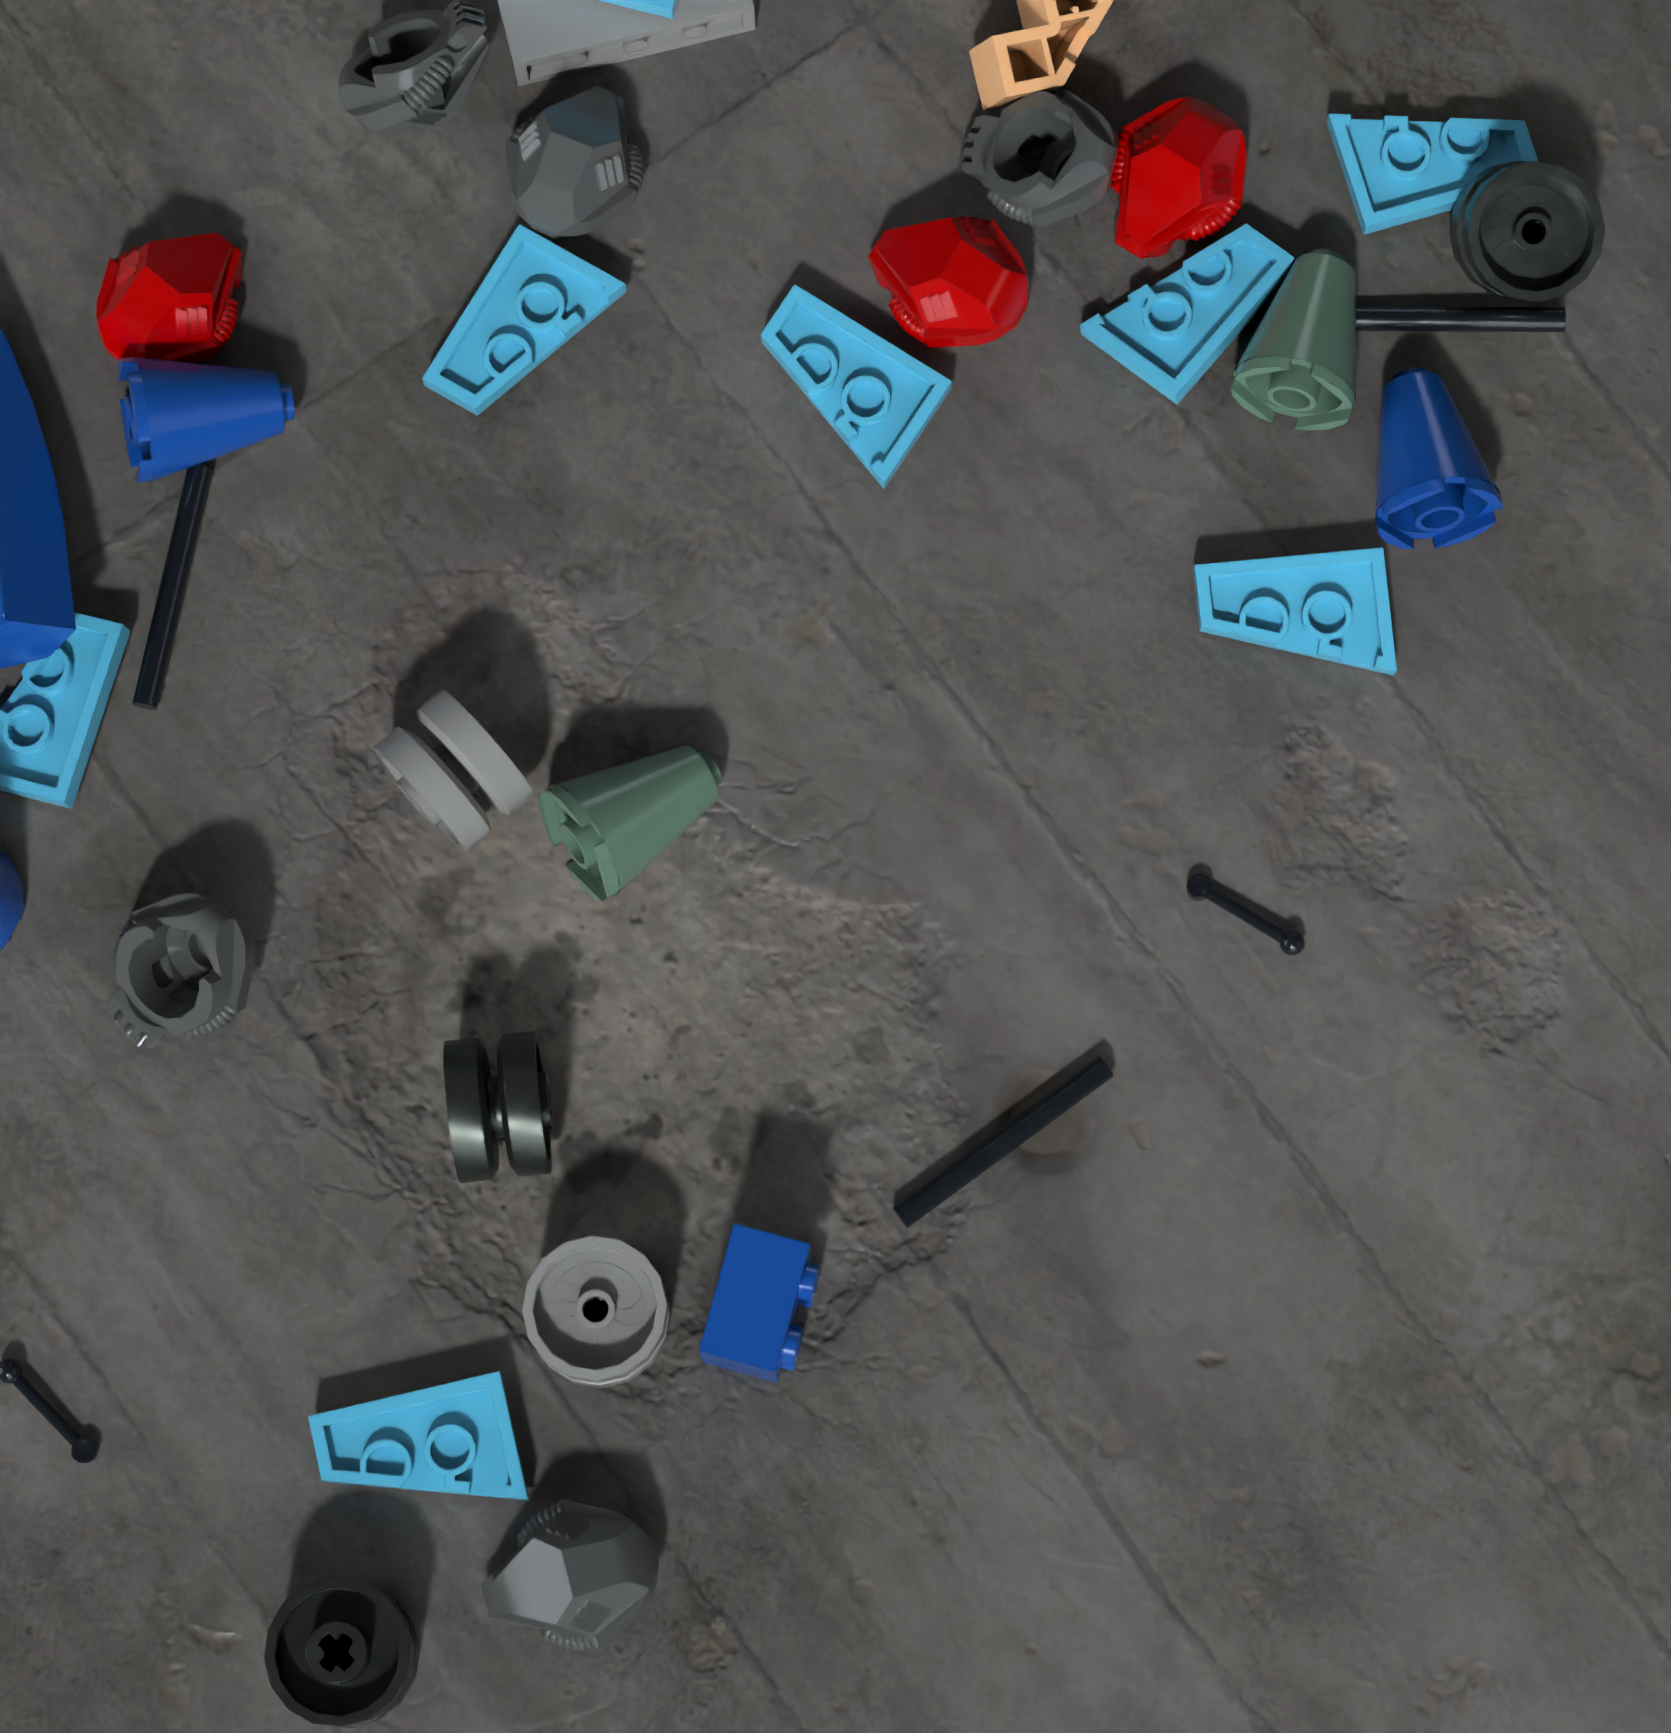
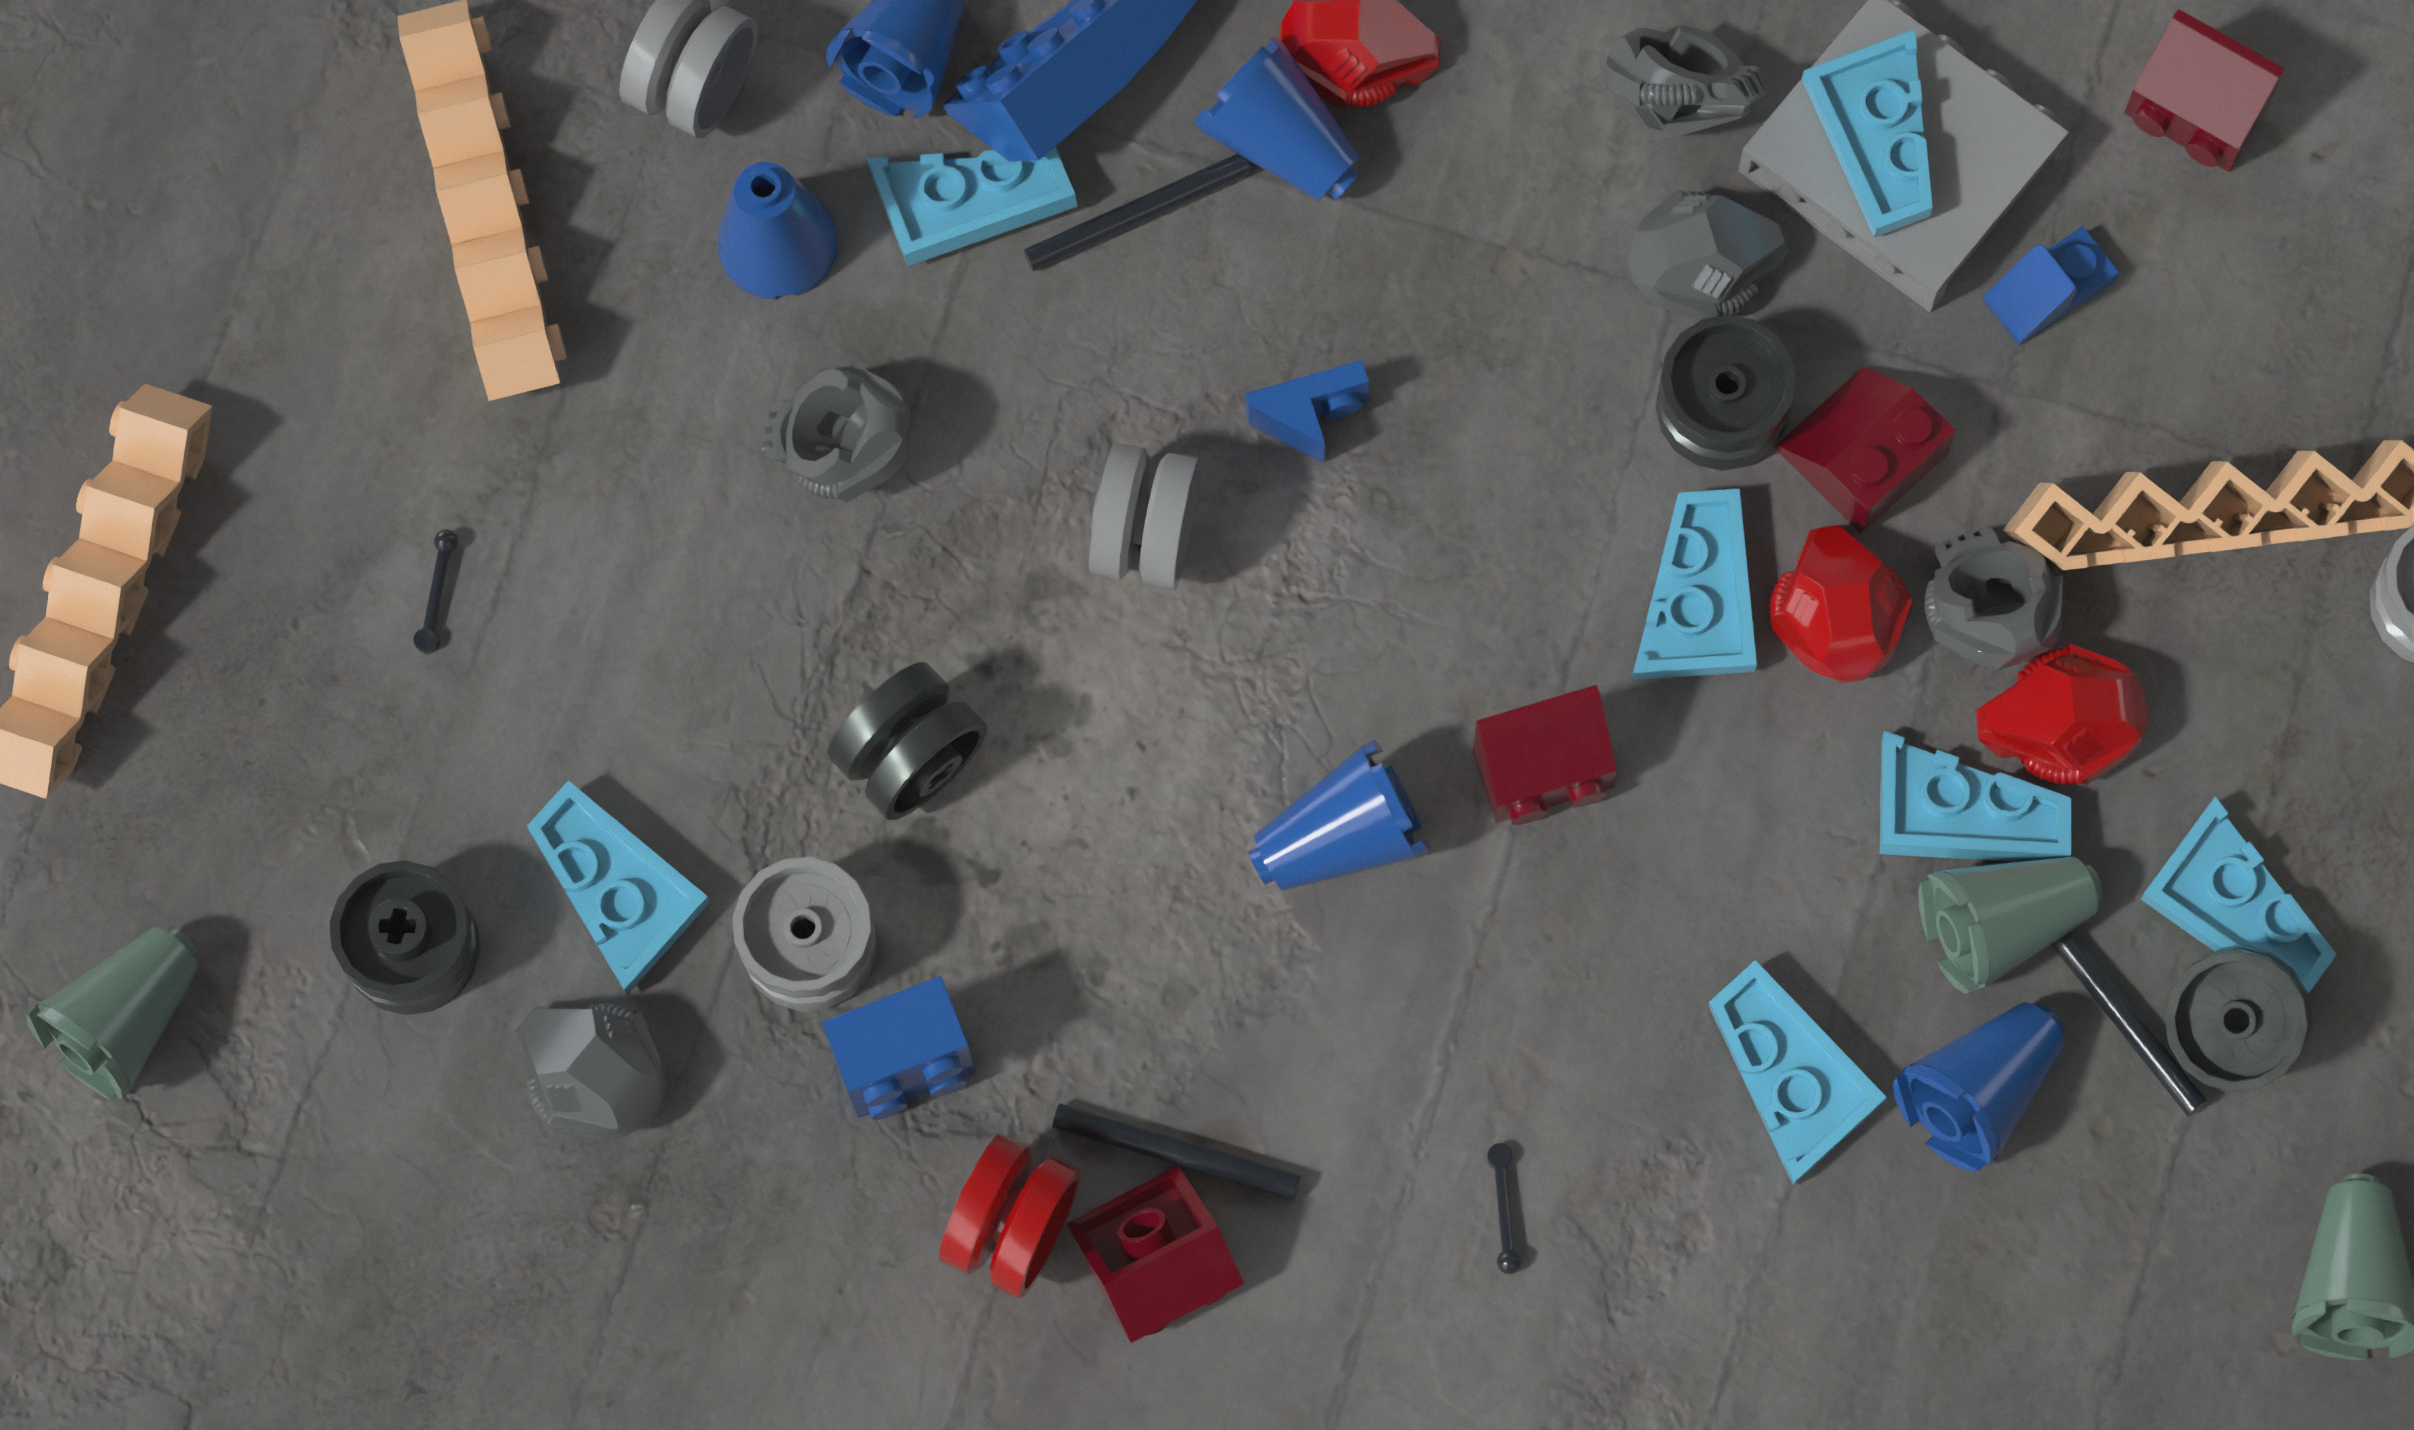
camera: 55 degrees right, 5 degrees down
(449, 586) = (1292, 407): none -> blue slope
(517, 319) = (1546, 305): medium azure wing -> none
(627, 814) = (1216, 673): sand green cone -> none
(674, 222) = (1725, 392): none -> pearl dark grey wheel
(832, 158) = (1868, 445): none -> dark red slope
(837, 809) = (1340, 826): none -> blue cone
(905, 603) = (1545, 756): none -> dark red slope
(974, 1312) = (1009, 1215): none -> red wheel
(1079, 1220) = (1155, 1254): none -> dark red slope

